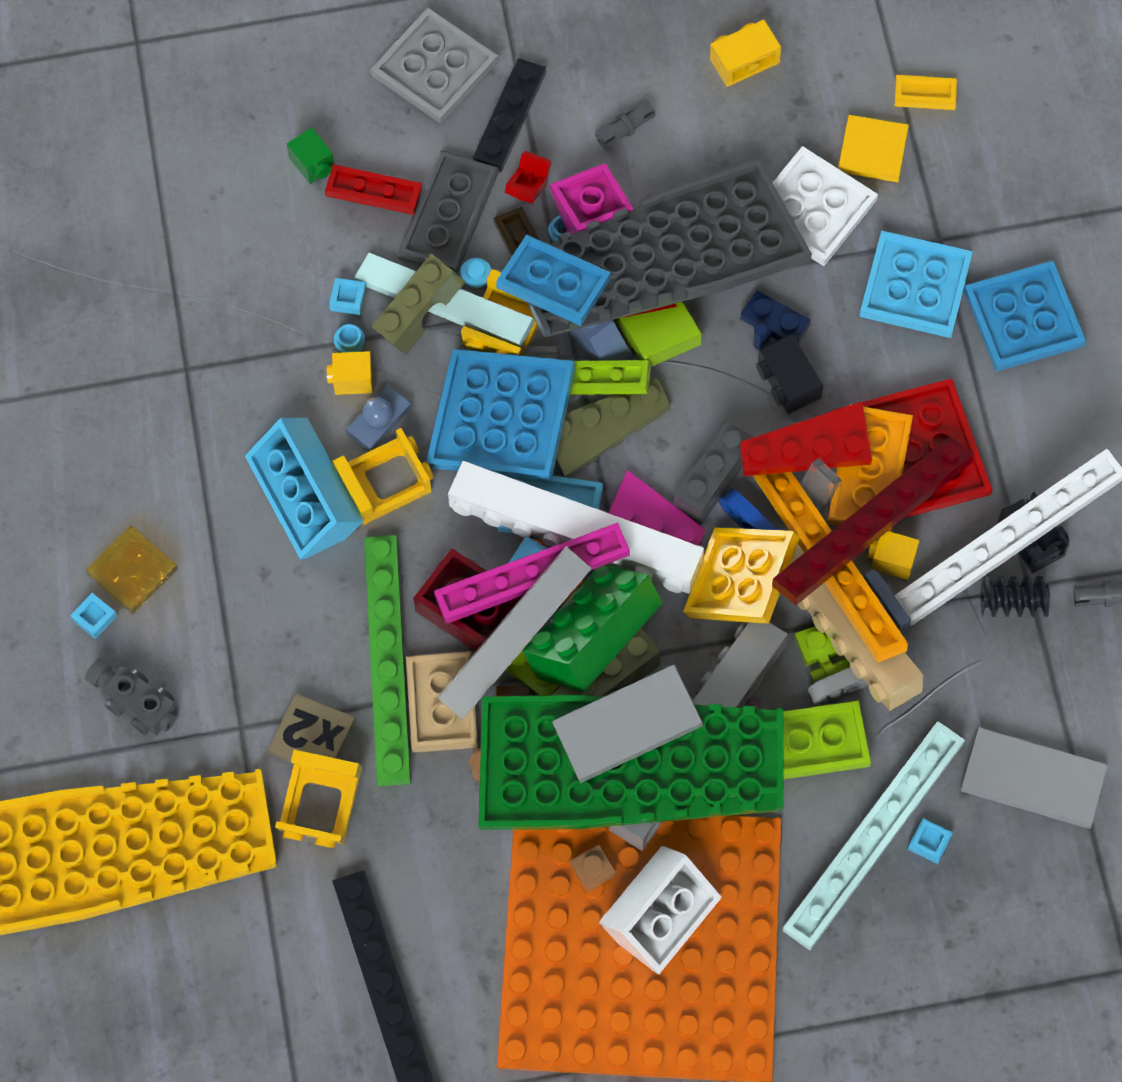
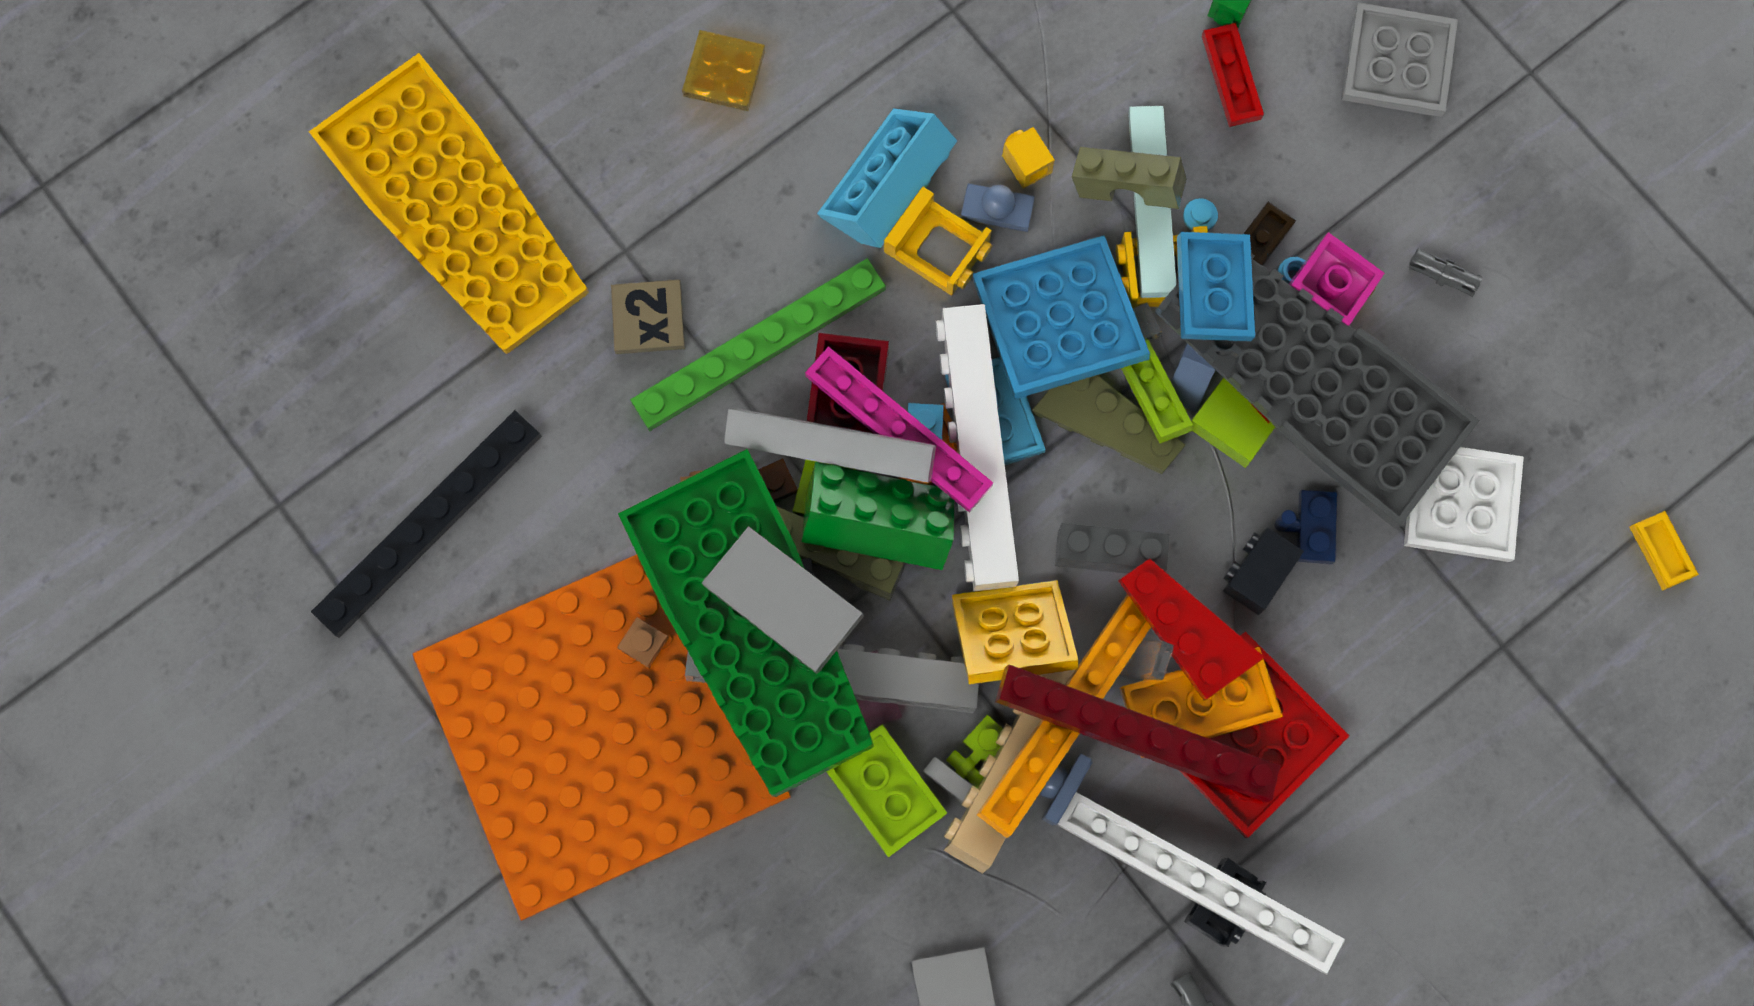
camera: 60 degrees right, 10 degrees up
(93, 616) = (661, 62): medium azure plate -> none
(134, 700) = (603, 142): dark grey brick -> none
(325, 772) = (614, 349): yellow window -> none
(347, 296) = (1106, 111): medium azure plate -> none
(349, 339) = (1063, 137): medium azure plate -> none
(431, 721) = (755, 391): tan tile -> none
(448, 210) = (1251, 157): dark grey tile -> none
(510, 113) = (1390, 158): black plate -> none
(529, 178) = (1328, 212): red bracket -> none
(646, 507) = (1036, 514): dark pink wing -> none
(660, 908) = (630, 727): white slope -> none
(743, 511) = (1085, 607): blue beam -> none
(745, 52) = (1596, 347): yellow brick -> none
(873, 148) = (1566, 529): yellow tile -> none
(873, 836) = (818, 897): light aqua plate -> none
(894, 554) = (1123, 773): yellow brick -> none
(916, 284) = (1436, 648): medium azure plate -> none
(930, 840) = (842, 956): medium azure tile -> none
(1014, 595) = (1143, 917): black piece -> none
(1024, 316) = (1465, 776): dark azure plate -> none

